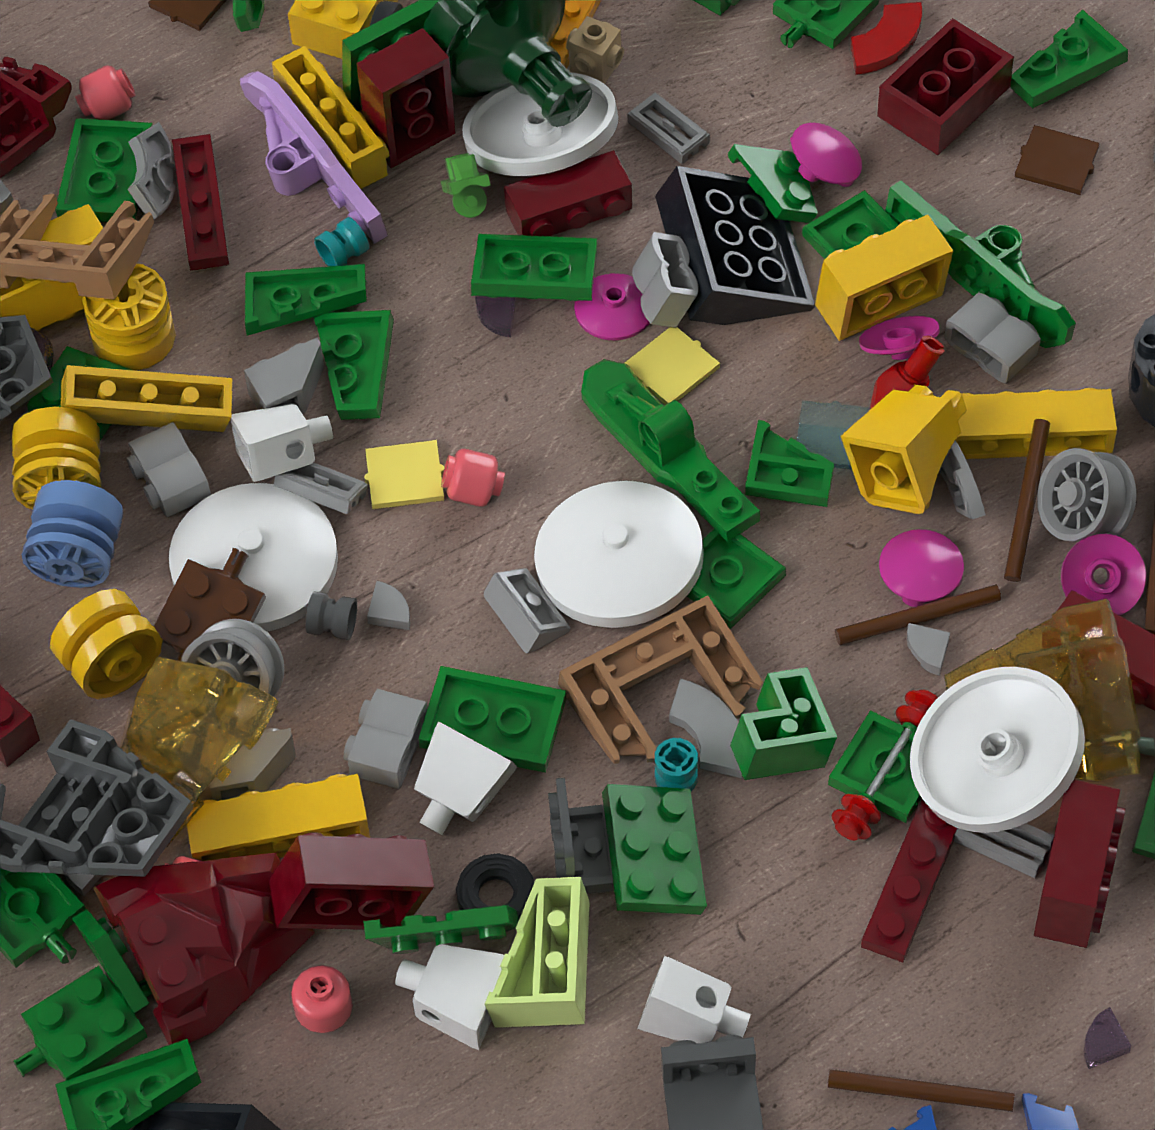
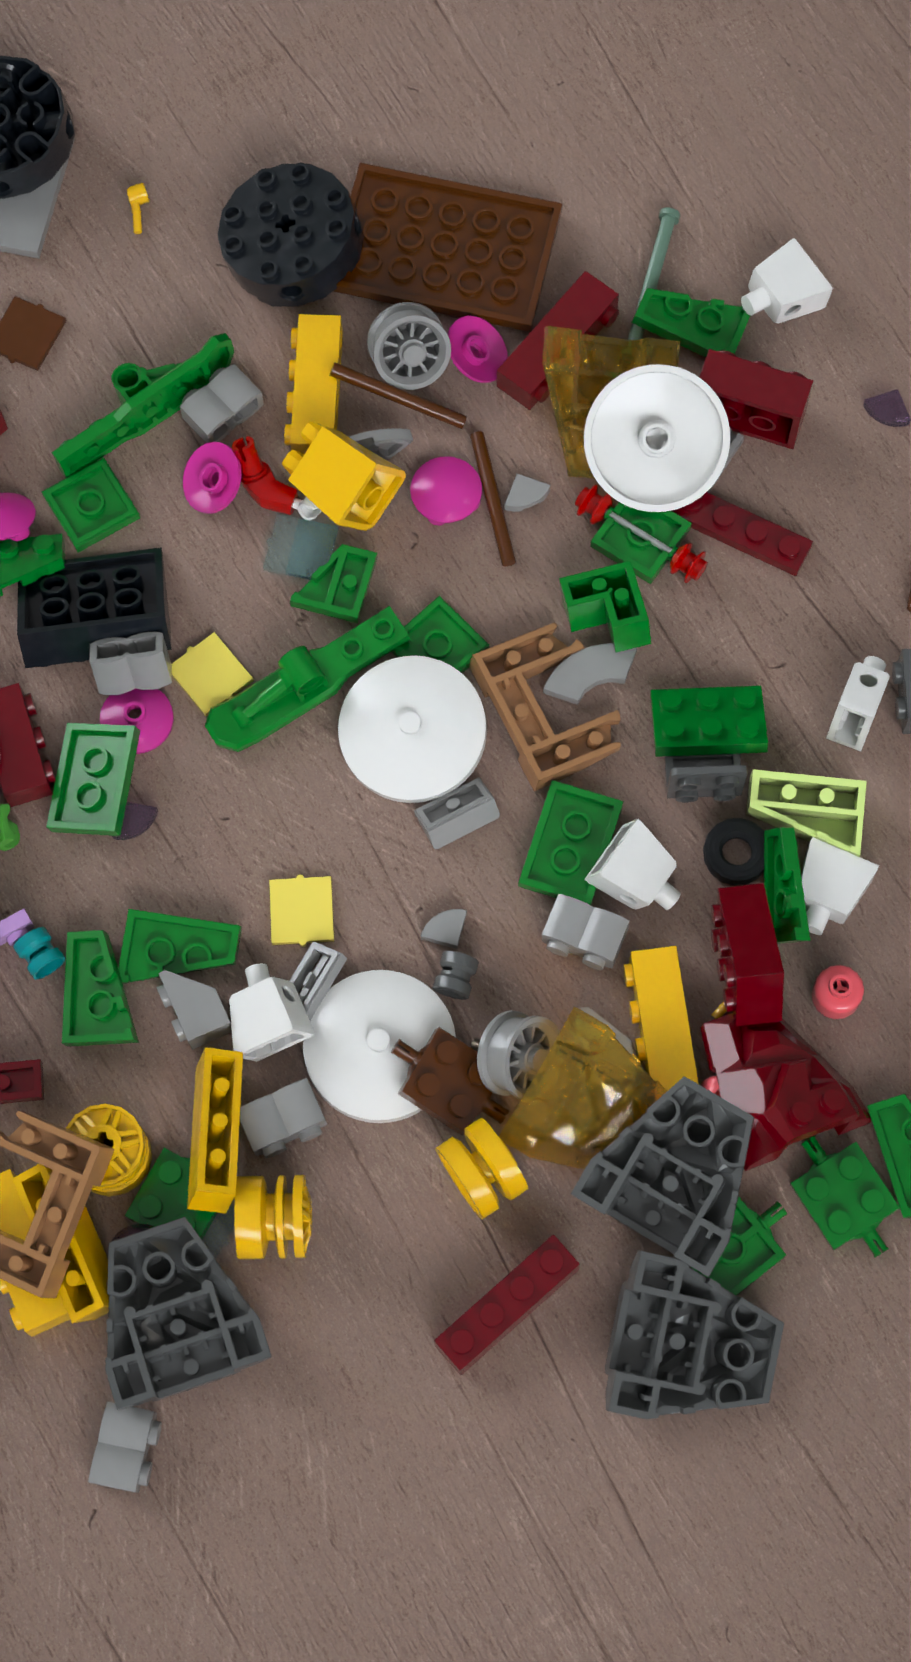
camera: 85 degrees left, 15 degrees up
(72, 534) = (357, 1200): medium blue wheel -> none
(108, 949) = (795, 1163): green wing -> none
(472, 477) = (321, 847): coral head -> none
(669, 770) = (631, 705): teal wheel -> none
(883, 276) = (157, 478): yellow brick -> none

